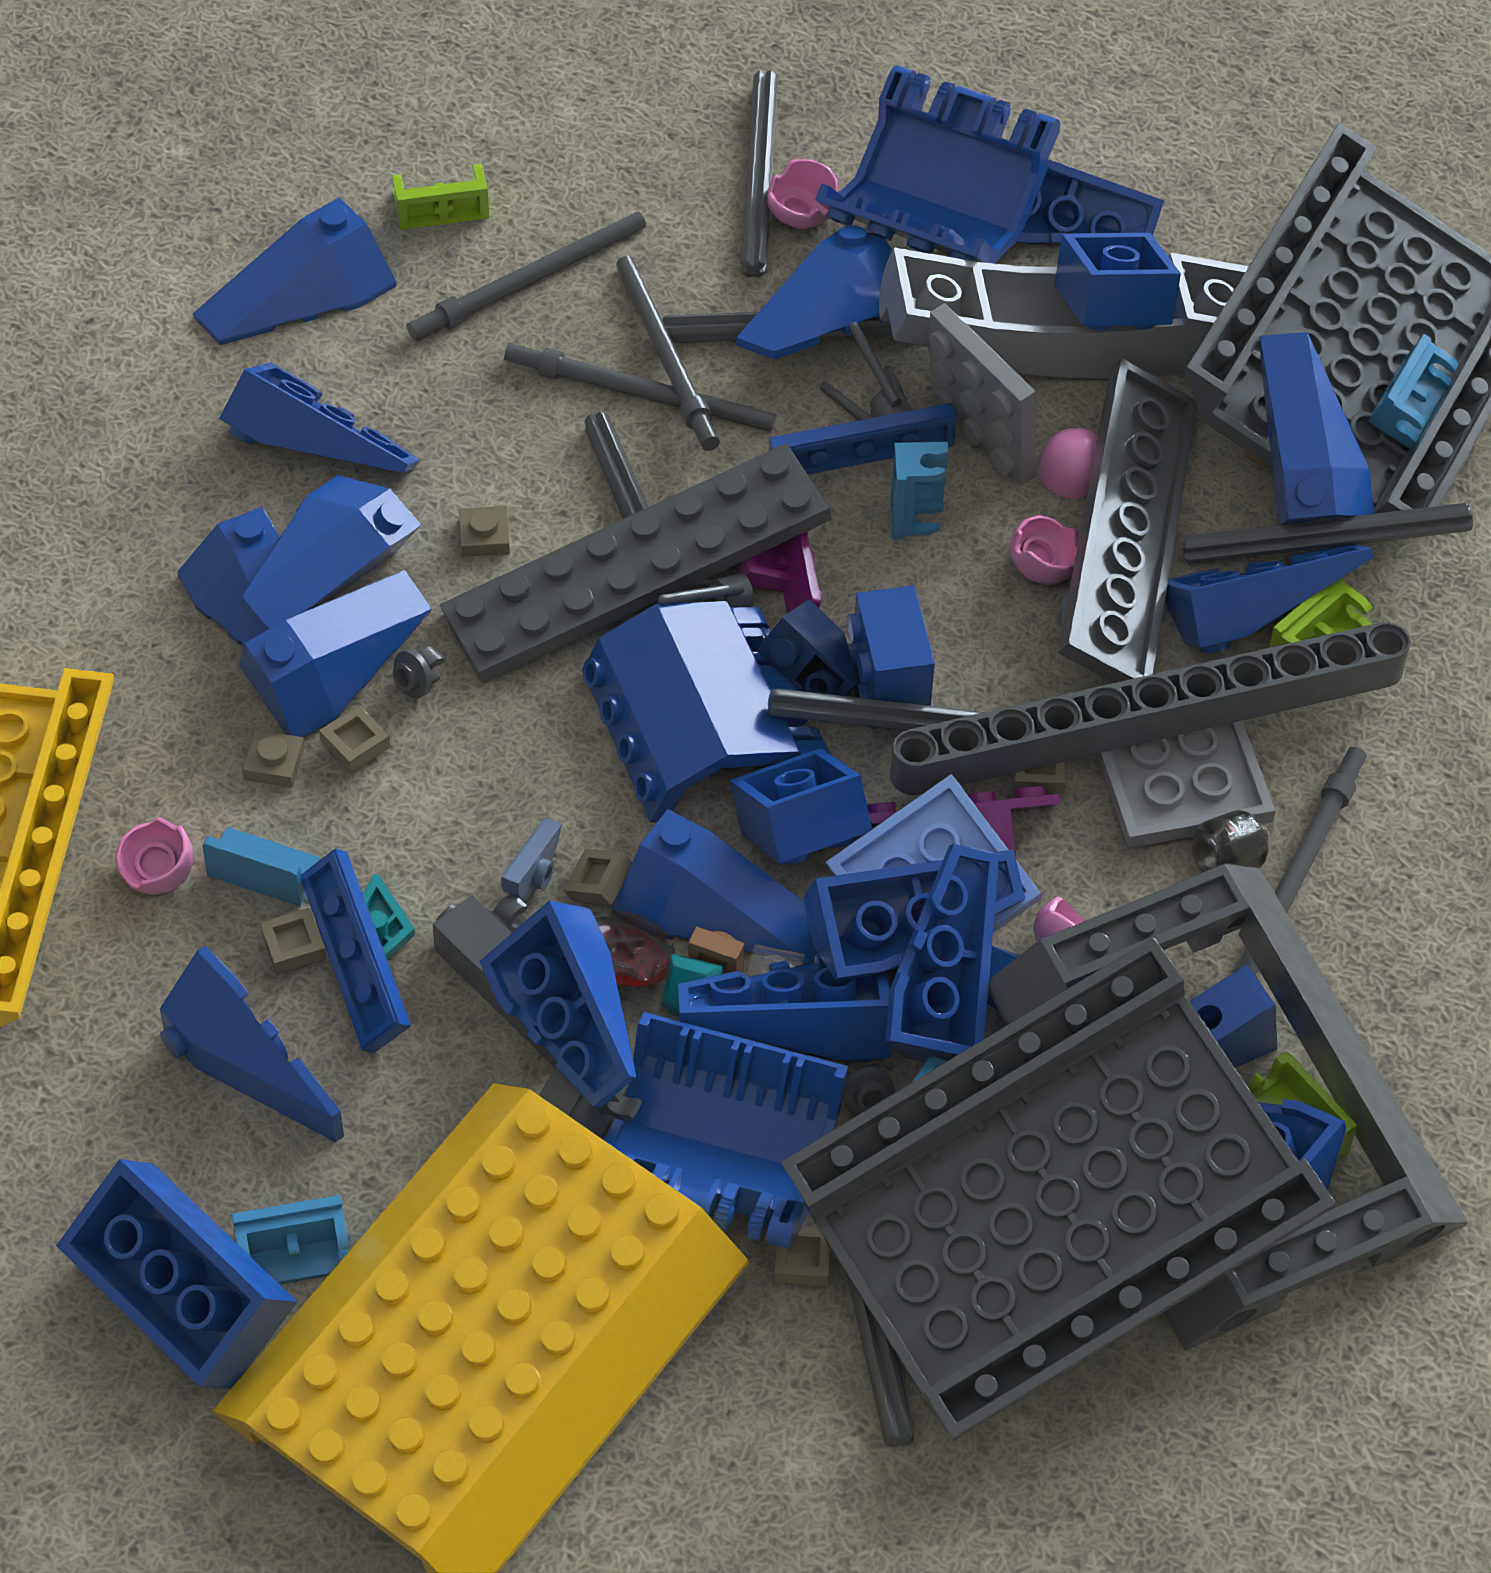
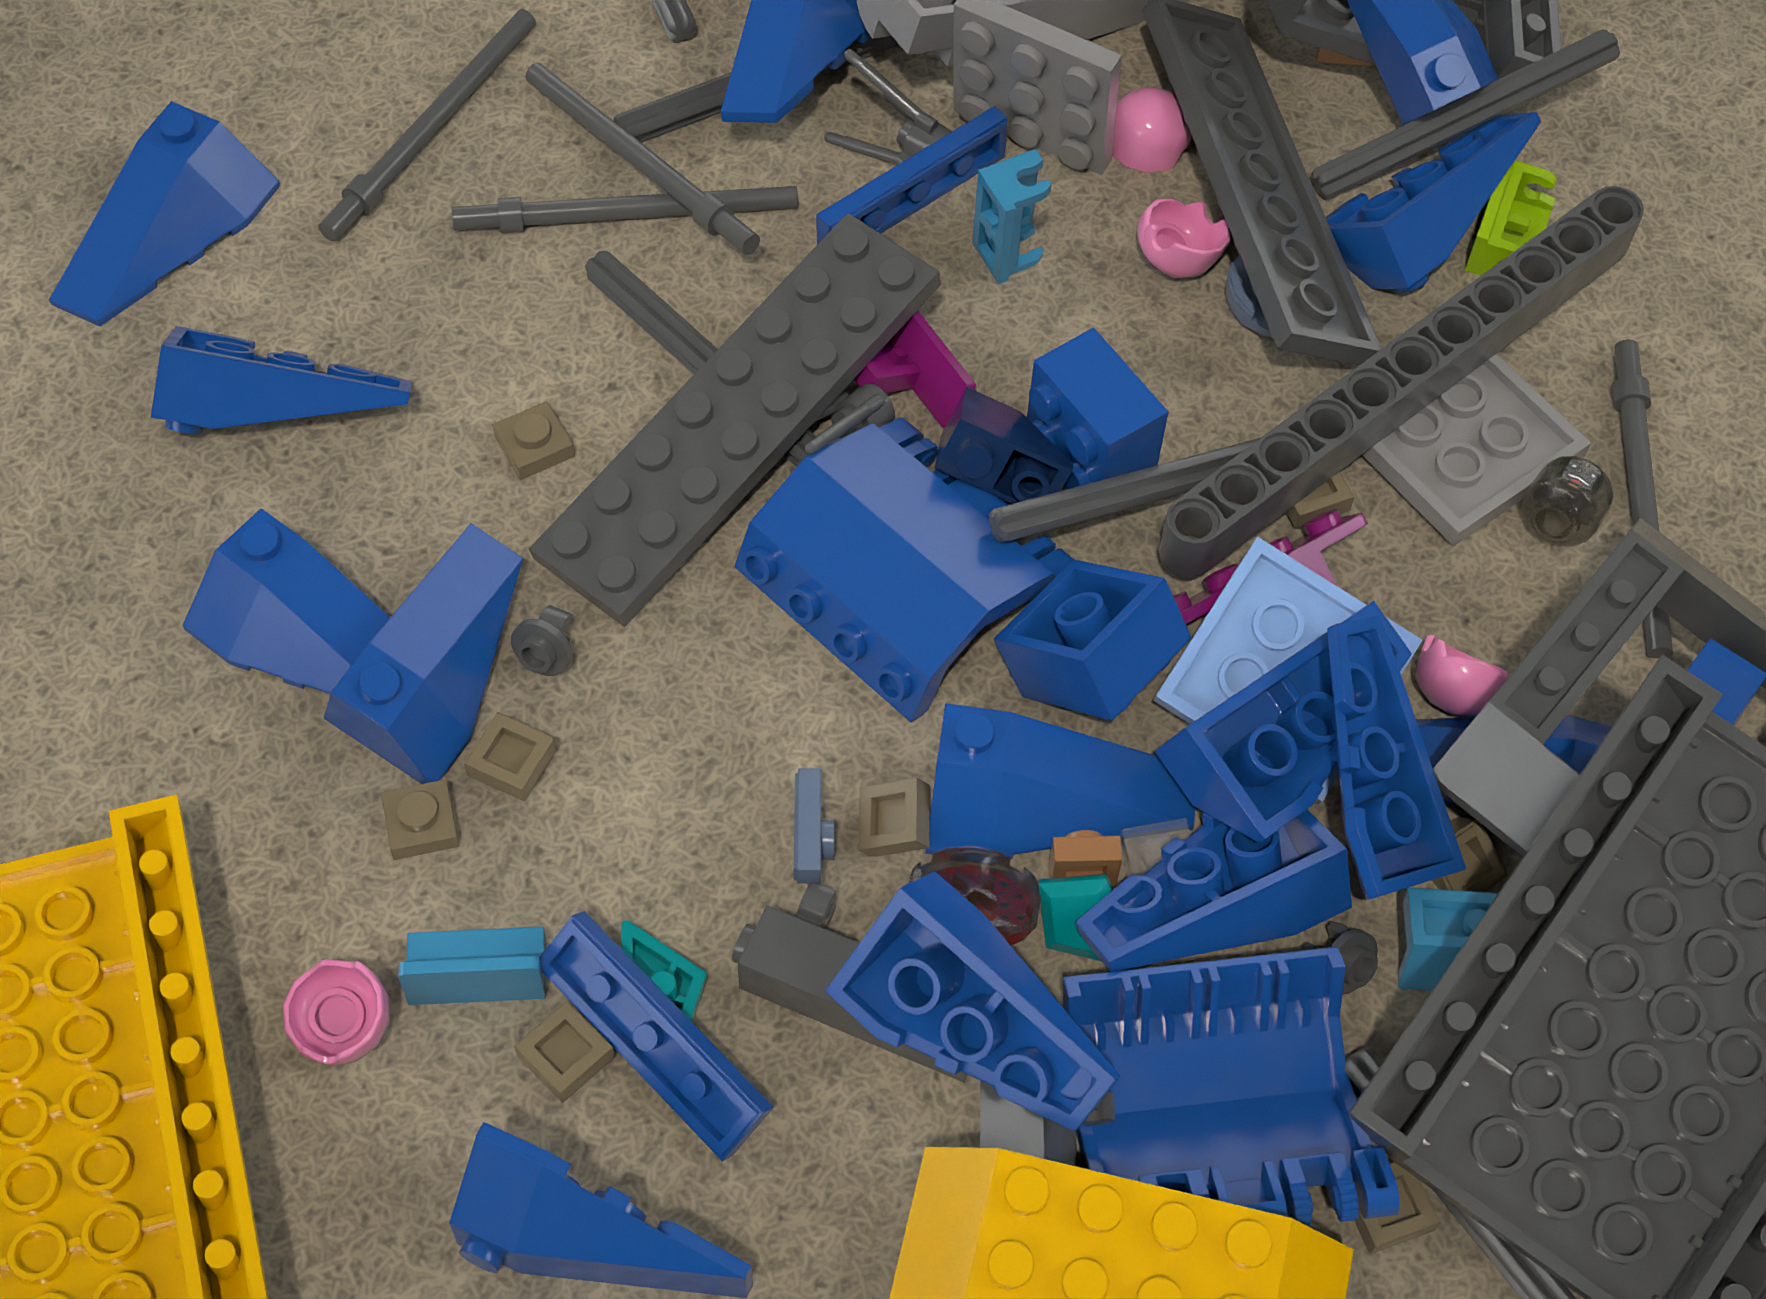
camera: 25 degrees left, 5 degrees up
(326, 547) = (364, 527): blue wedge -> none
(441, 202) = (287, 71): lime hinge -> none

